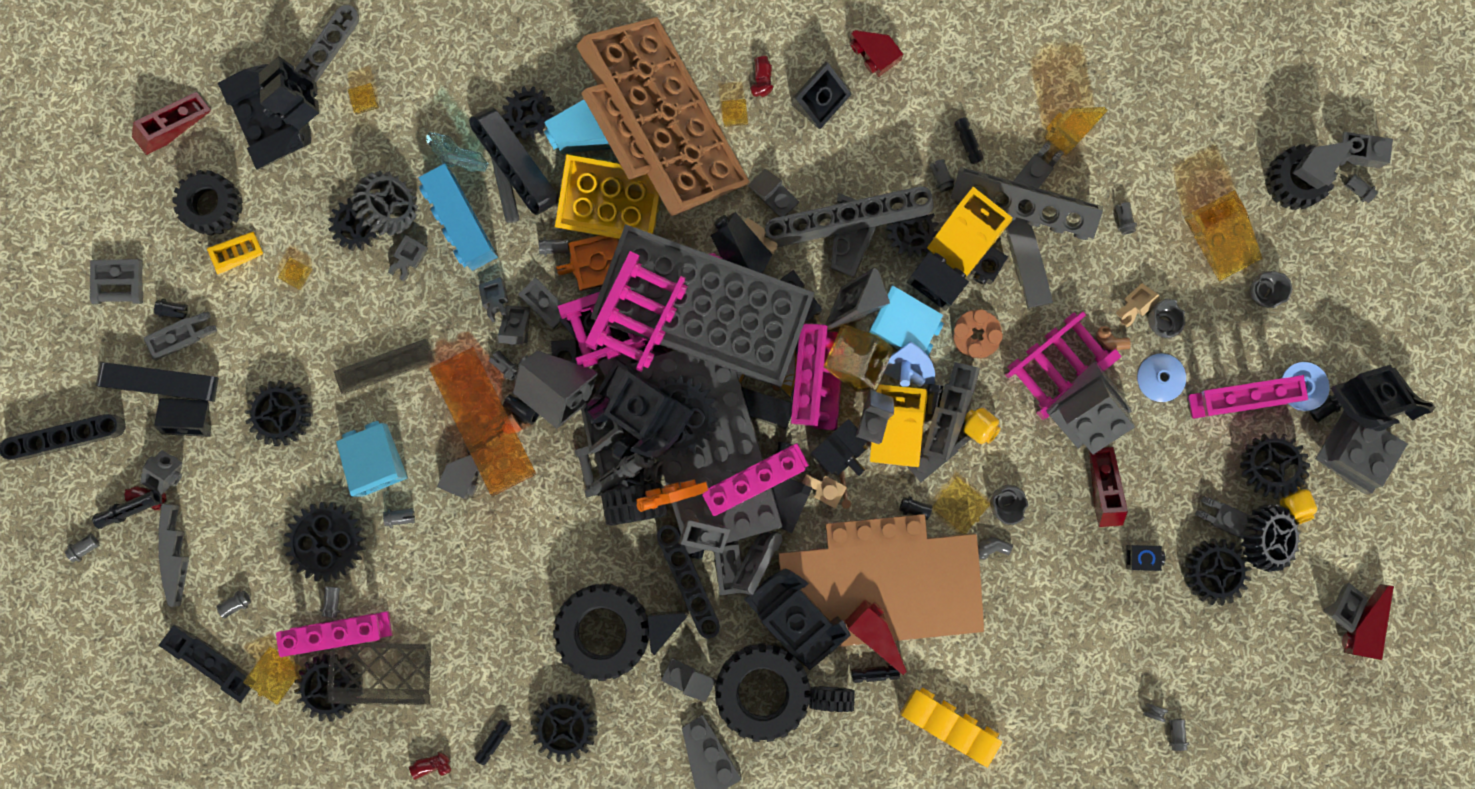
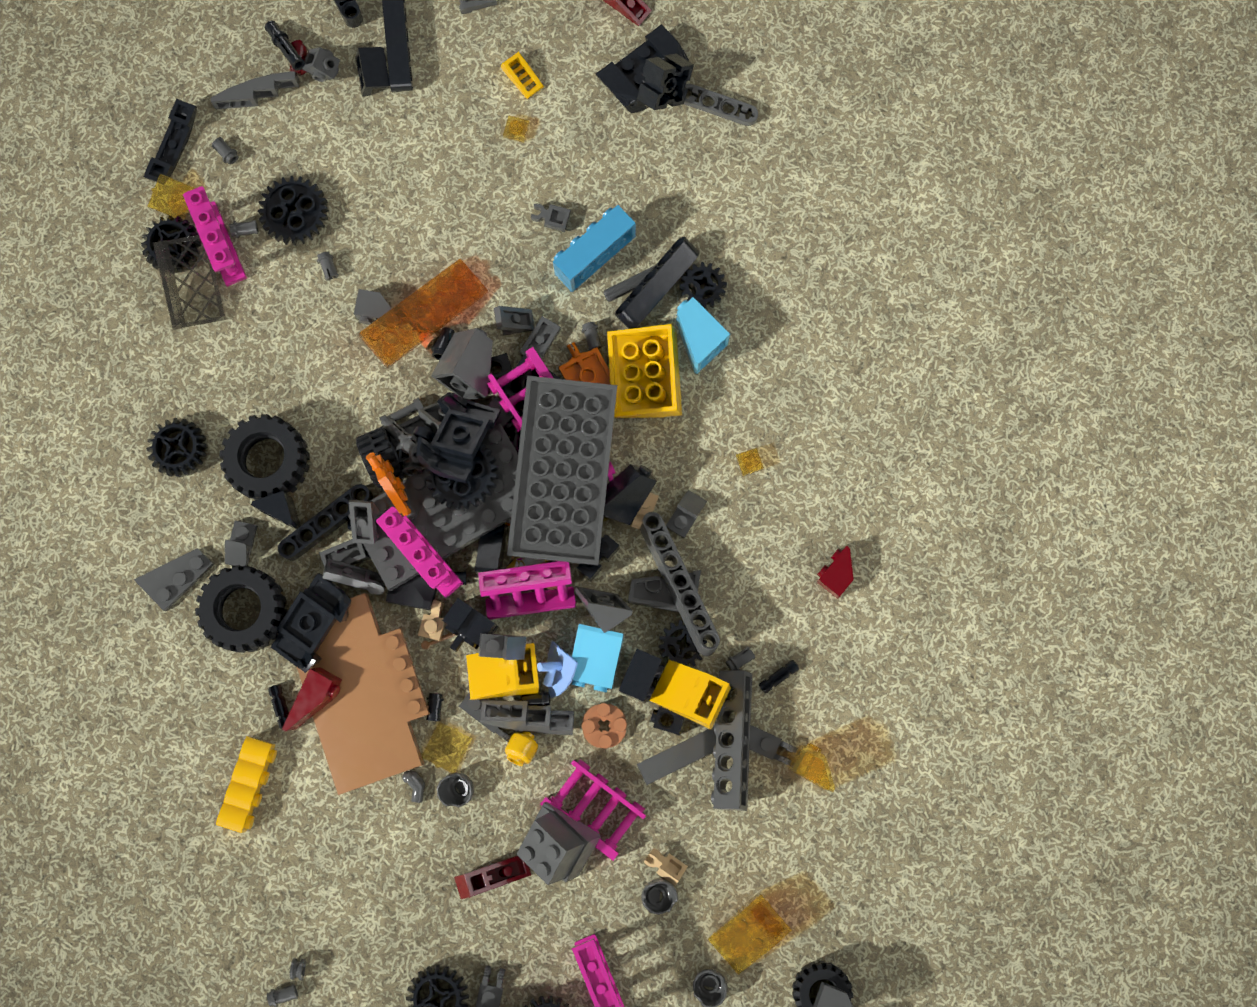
camera: 75 degrees right, 5 degrees down
(81, 548) = (241, 15): dark grey pin -> none
(169, 309) = (460, 31): black pin -> none
(178, 336) = (439, 48): dark grey hinge -> none
(188, 197) = (557, 26): black tyre -> none
(257, 418) = (384, 129): black gear -> none
(345, 227) = (576, 161): black gear -> none
(363, 98) = (680, 145): clear yellow plate -> none
(370, 459) = (370, 229): medium azure slope -> none
(377, 207) = (587, 168): dark grey gear -> none
(384, 366) = (453, 221): clear smoke plate -> none
(428, 765) = (122, 341): dark red arm -> none
(453, 155) = (647, 229): clear light blue plate -> none
(492, 742) = (153, 391): black axle -> none
(493, 295) = (534, 295): dark grey plate -> none
(504, 365) = (478, 319): dark grey pin -> none
(622, 291) = (555, 395): dark pink fence -> none
(657, 116) = (725, 394): medium nougat slope -> none
(763, 74) = (788, 478): dark red arm -> none
(821, 96) = (783, 534): black slope -> none
(832, 699) = (248, 671): black tyre -> none
(858, 358) = (553, 621): clear yellow slope -> none
(1109, 342) = (626, 849): medium nougat arm -> none
(1125, 218) = (743, 837): dark grey pin -> none
(1144, 557) = (435, 926): black brick -> none
(1150, 382) = (603, 893): light blue dish -> none

